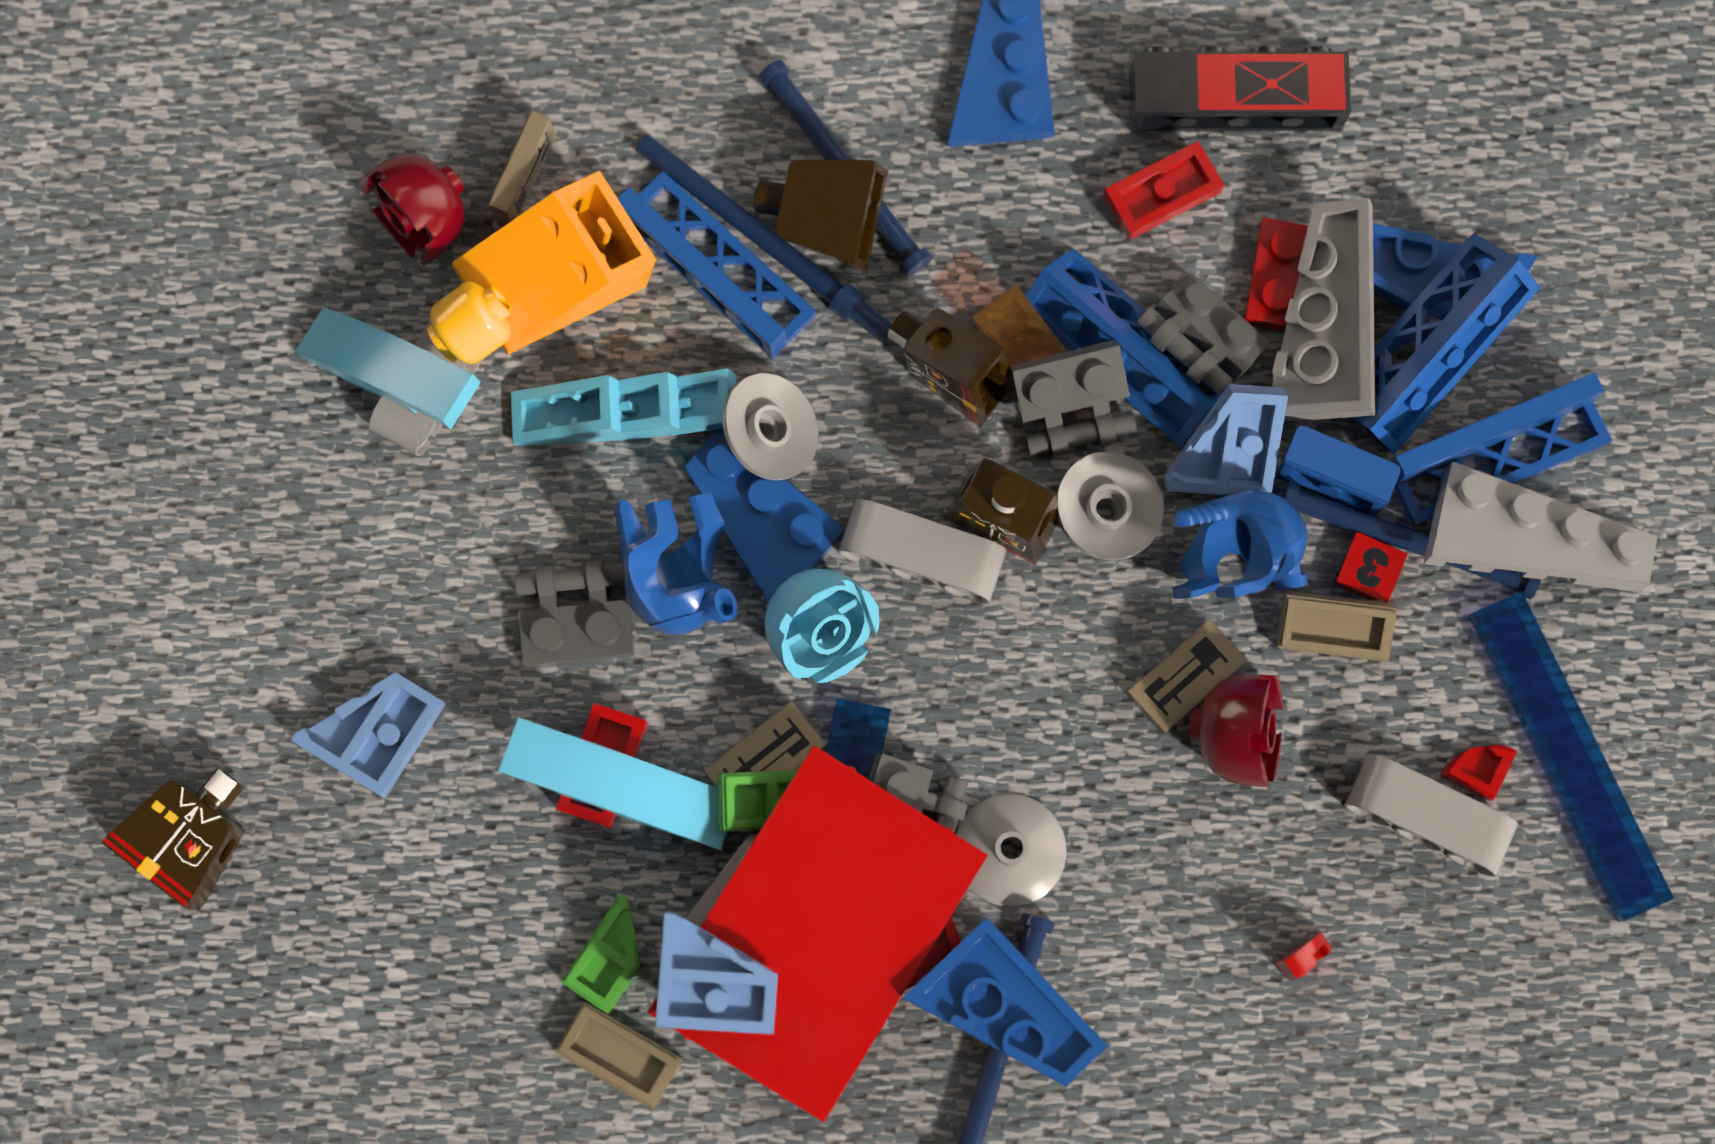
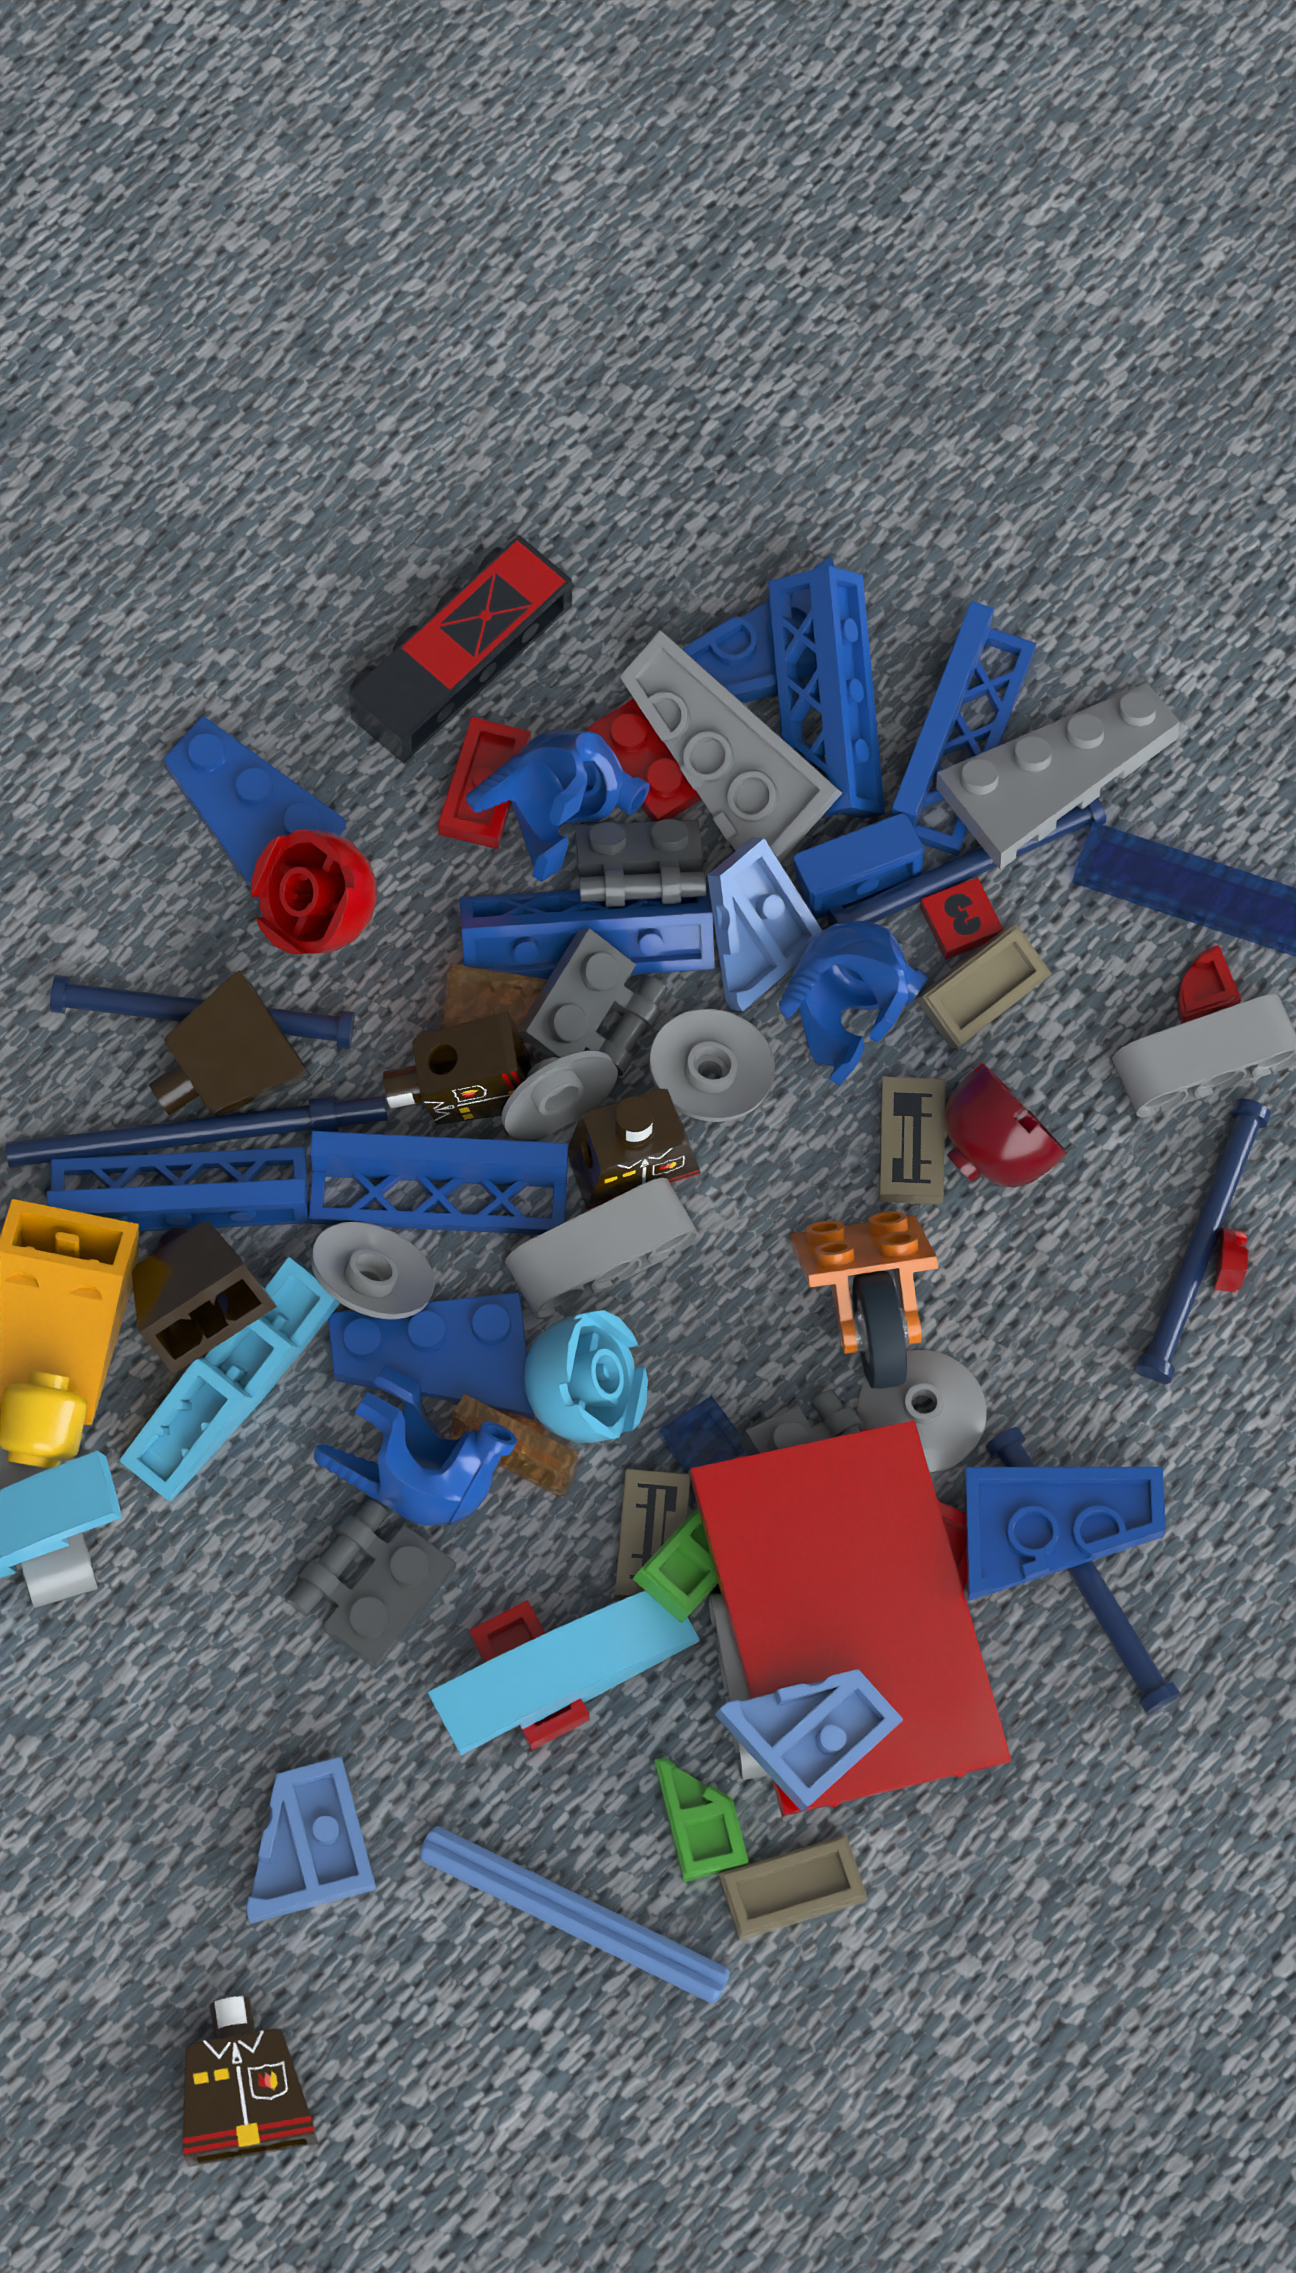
camera: 50 degrees left, 10 degrees down
(478, 936) = (574, 1914): none -> medium blue axle
(645, 336) = (194, 1295): none -> dark brown torso
(747, 622) = (534, 1455): none -> clear orange plate
(885, 402) = (438, 1160): none -> blue fence
(981, 157) = (313, 892): none -> red cylinder
(992, 429) = (558, 1094): none -> light grey dish
(1070, 719) = (880, 1319): none -> orange plate
(1199, 230) = (556, 782): none -> blue piece
(1302, 925) = (1248, 1117): none -> dark blue bar

